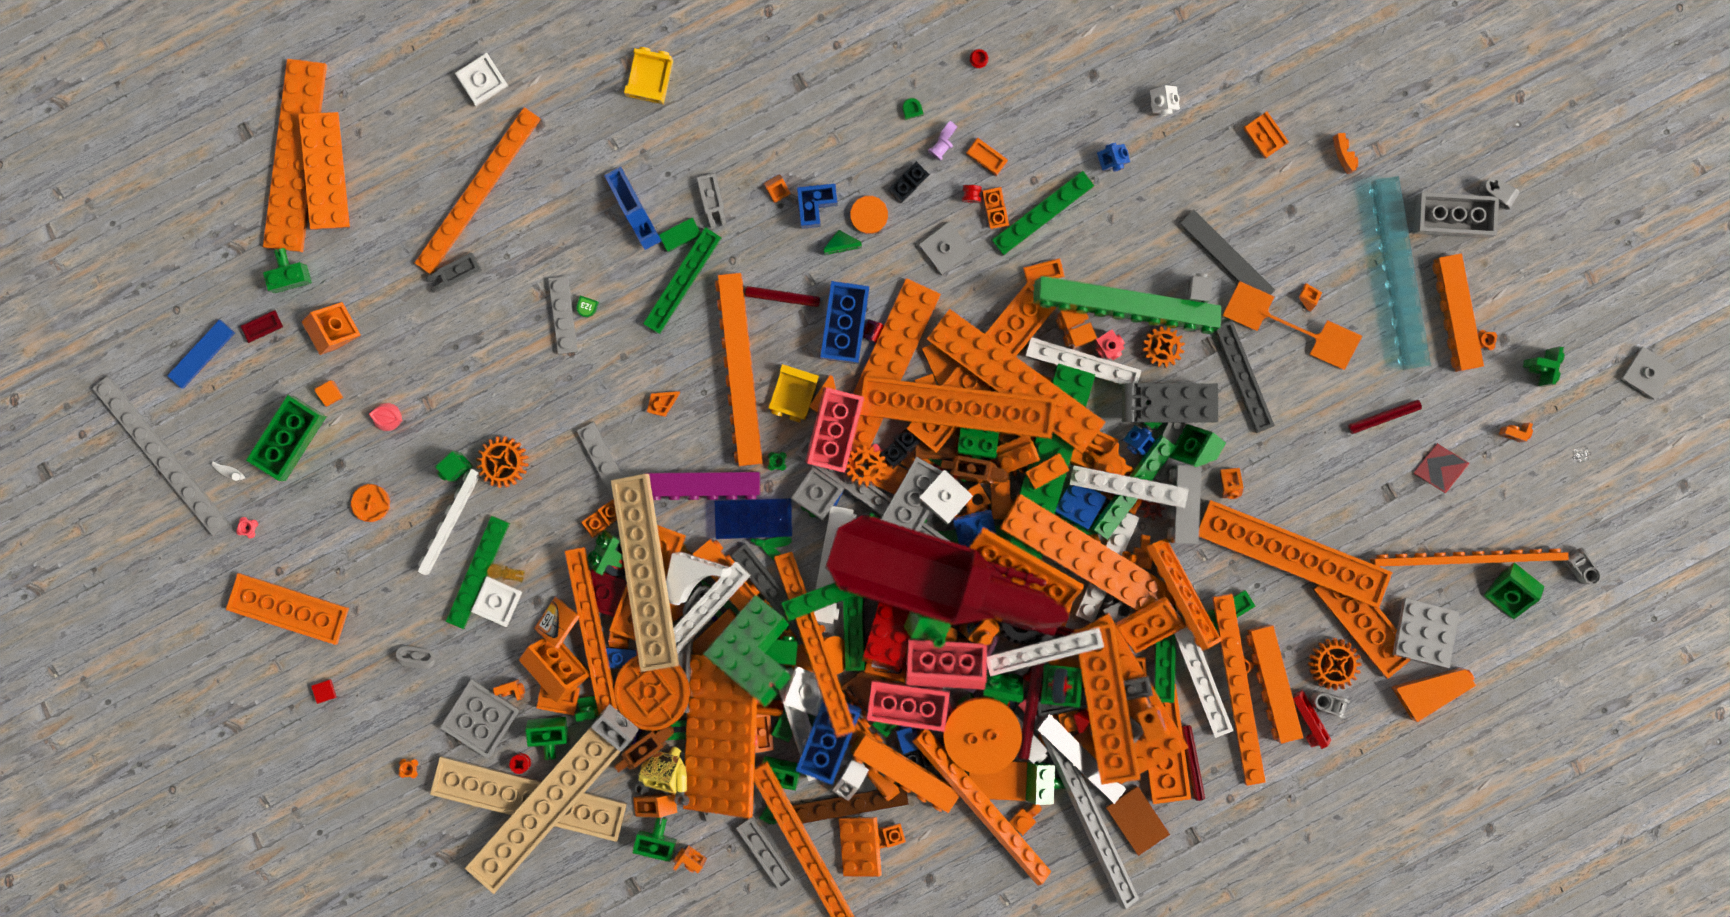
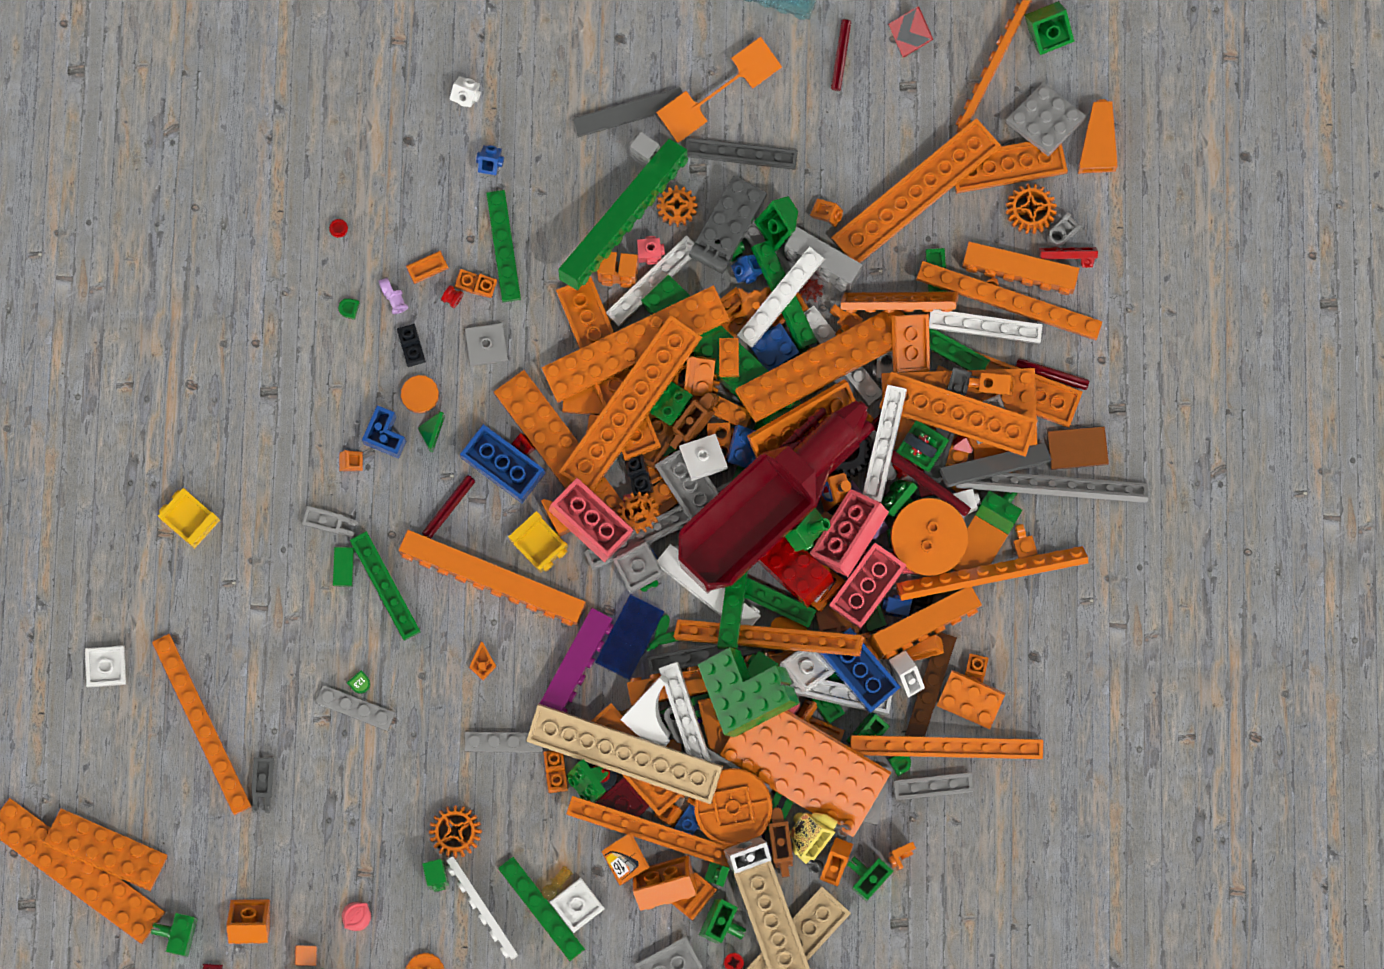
camera: 60 degrees left, 10 degrees down
(506, 689) = (660, 938): orange bracket -> none
(632, 208) = (296, 594): blue slope -> none
(773, 457) = (585, 590): green plate -> none
(1049, 269) = (551, 278): orange tile -> none
(1266, 135) = (543, 24): orange plate -> none
(1309, 296) = (703, 62): orange slope -> none

